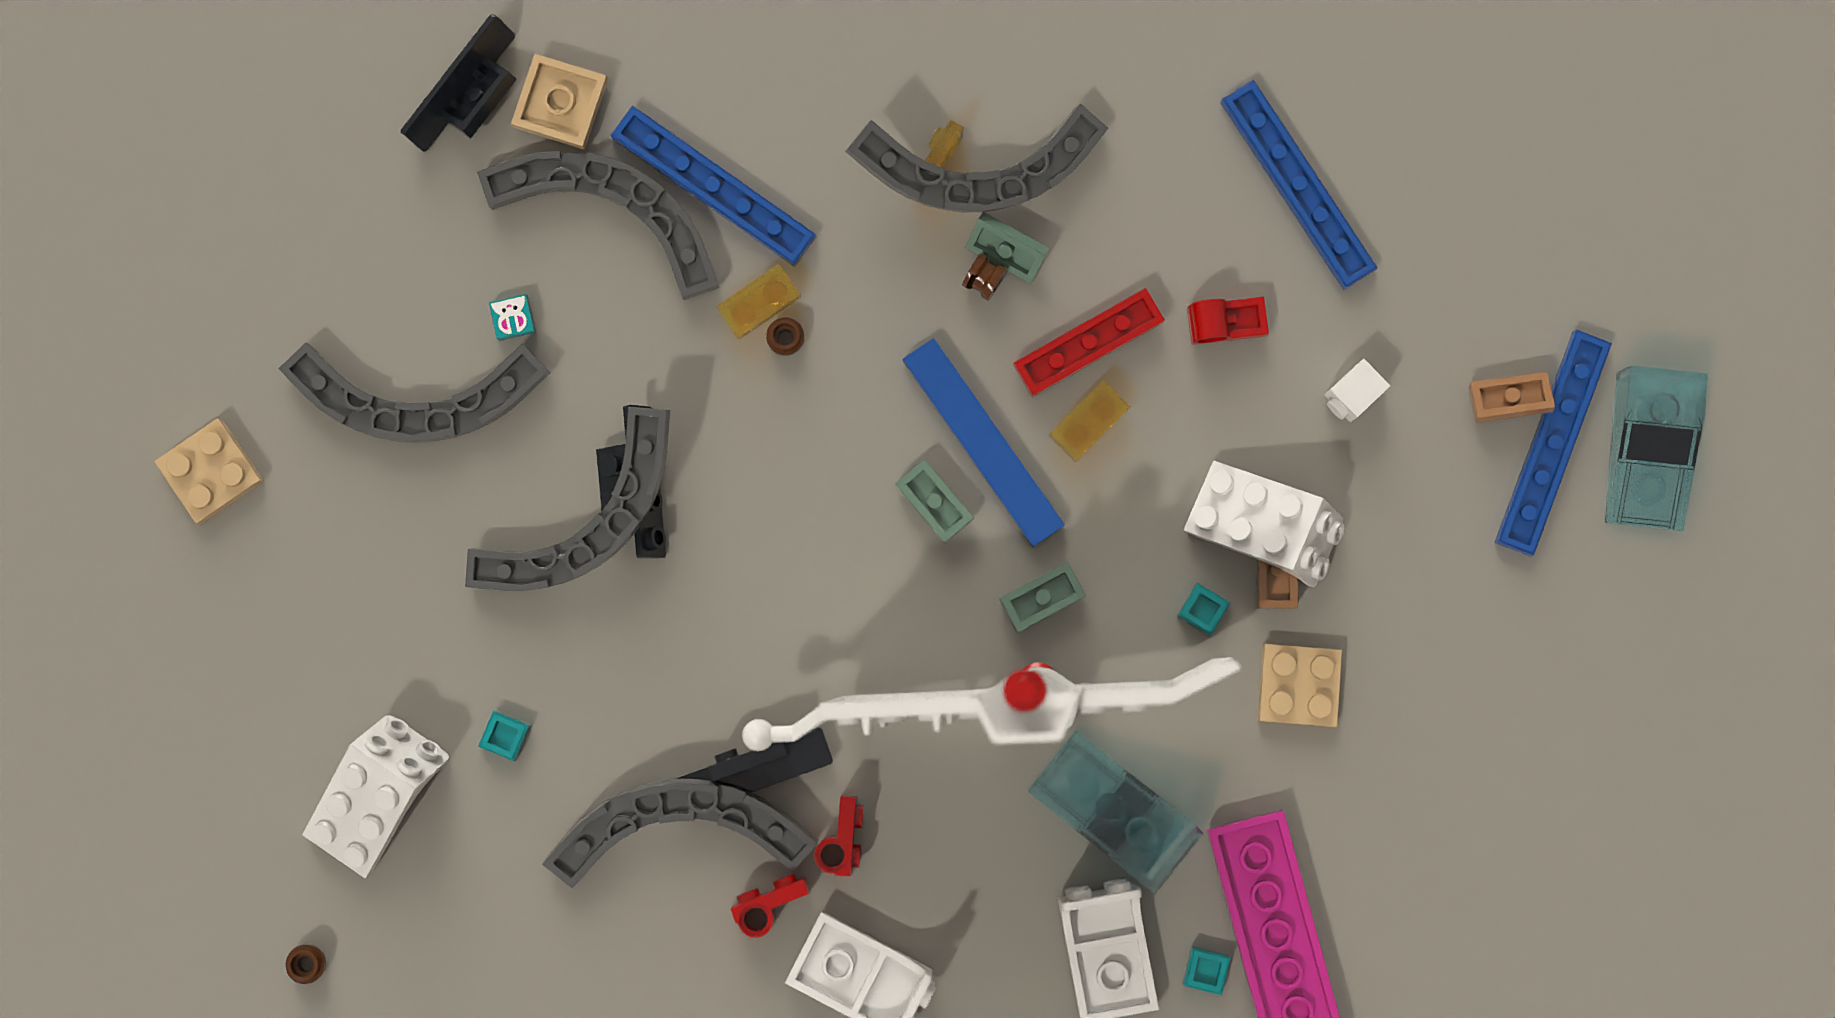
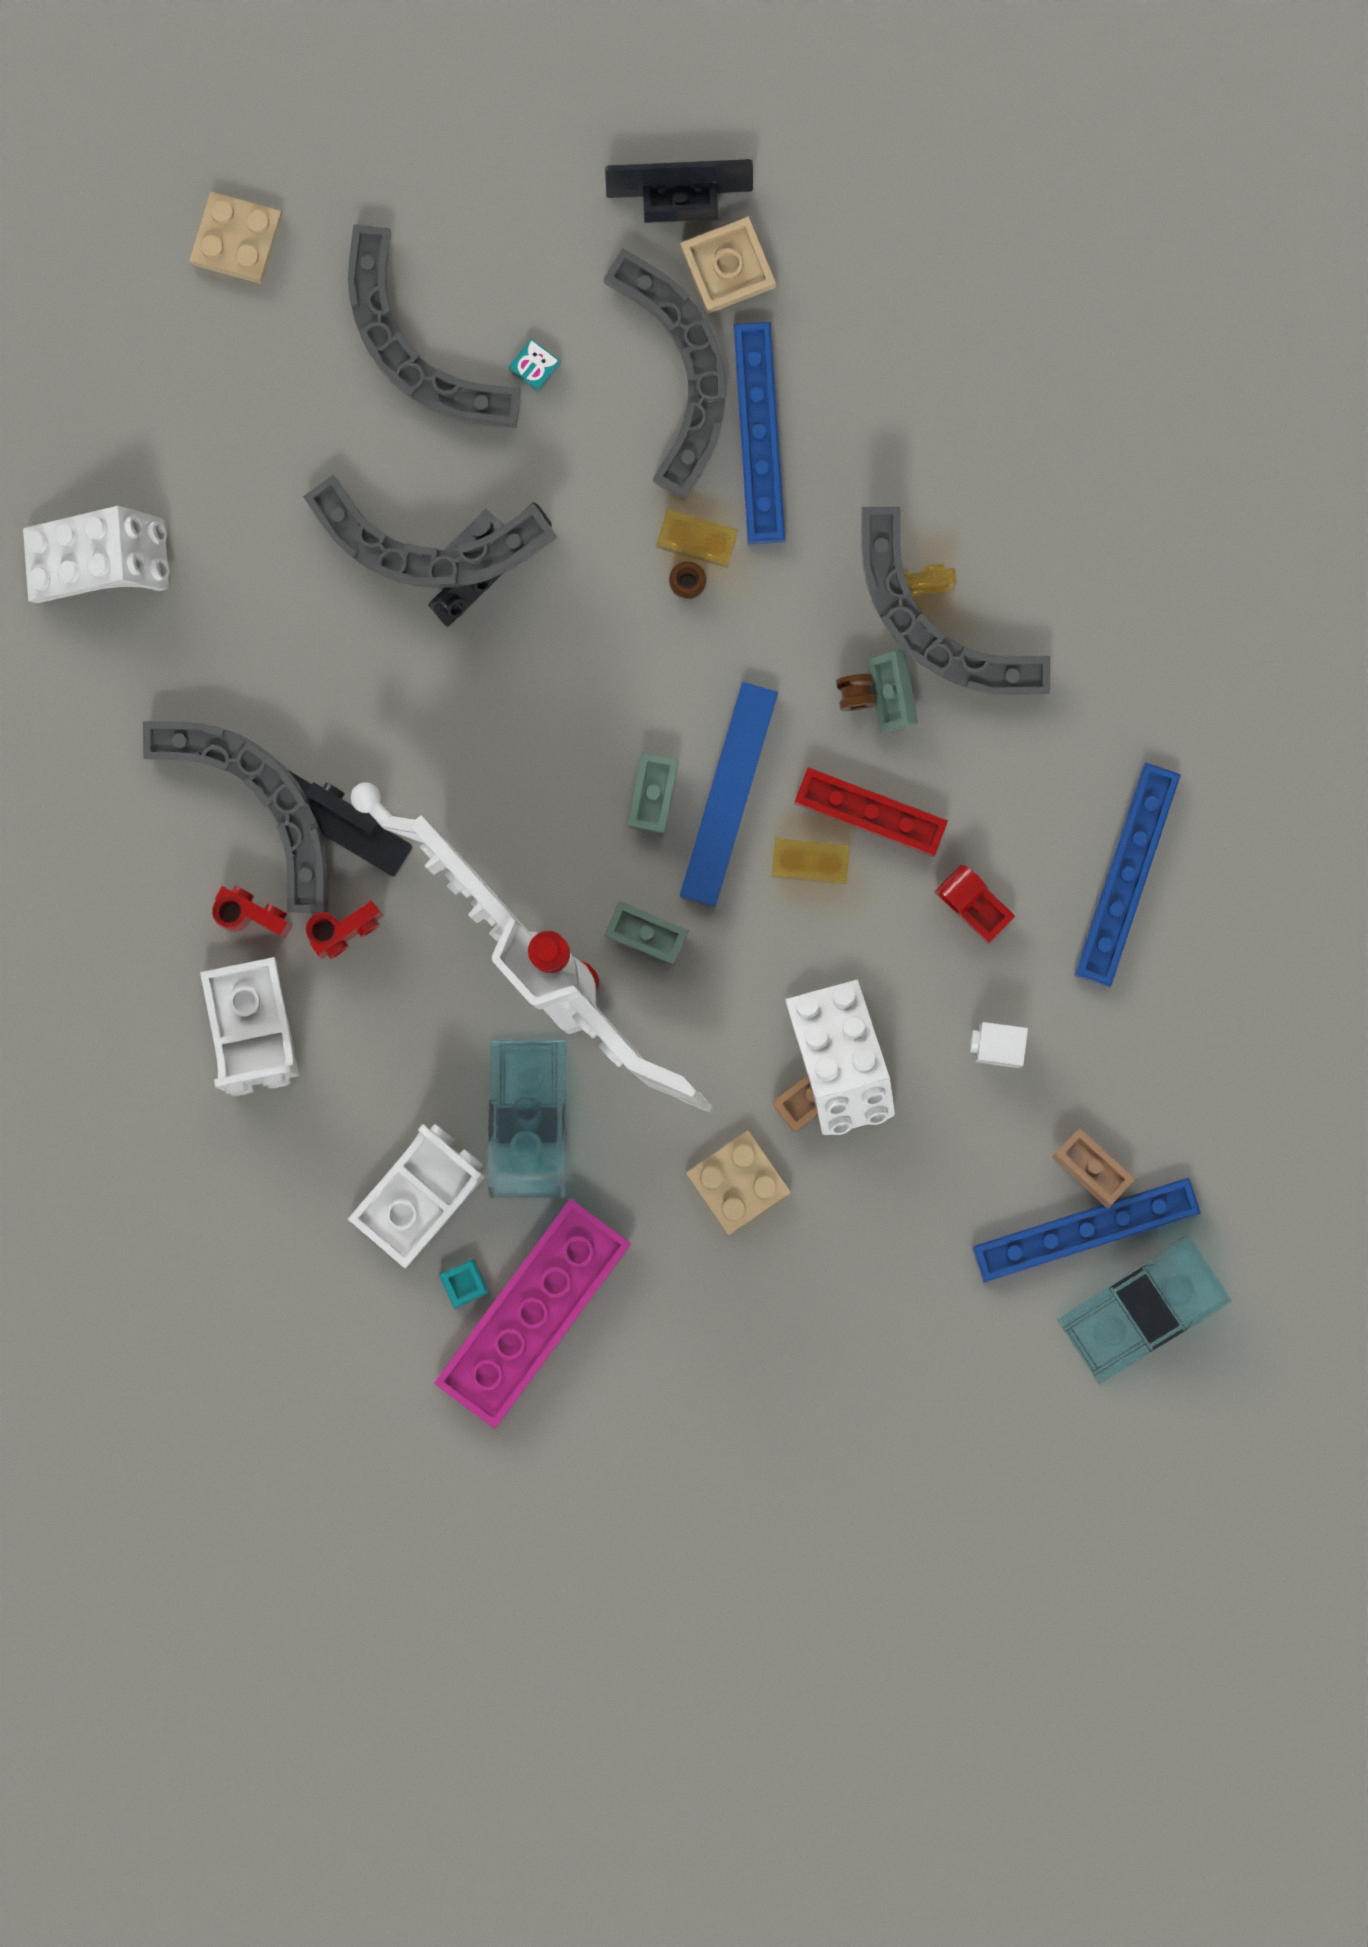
camera: 50 degrees right, 0 degrees up
(504, 736) = (216, 617): teal tile -> none
(1203, 609) = (737, 1063): teal tile -> none

